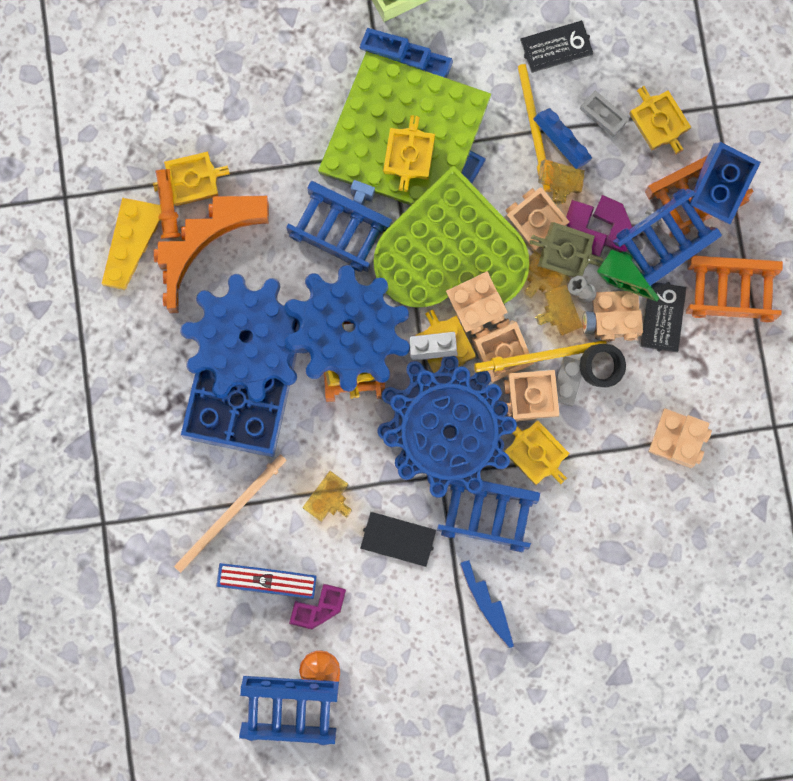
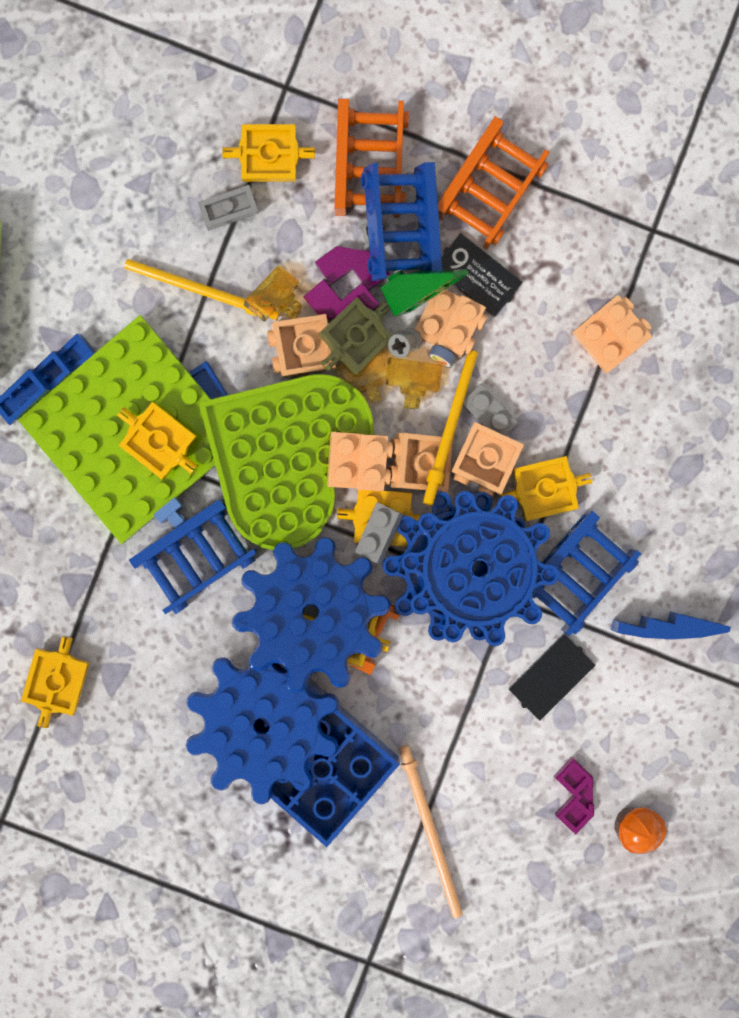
camera: 65 degrees left, 10 degrees up
(130, 240) = (86, 779): yellow wing -> none
(168, 215) = (83, 729): orange pin -> none
(227, 215) = (120, 709): orange arch -> none
(266, 581) = (521, 836): slope -> none
(286, 688) = (652, 876): blue fence -> none
(328, 498) = (473, 725): clear yellow hinge -> none
(556, 46) = (125, 214): piece -> none
(563, 138) = (230, 267): blue plate -> none
(619, 365) = (511, 358): black tyre -> none
(723, 182) = (379, 124): blue slope -> none

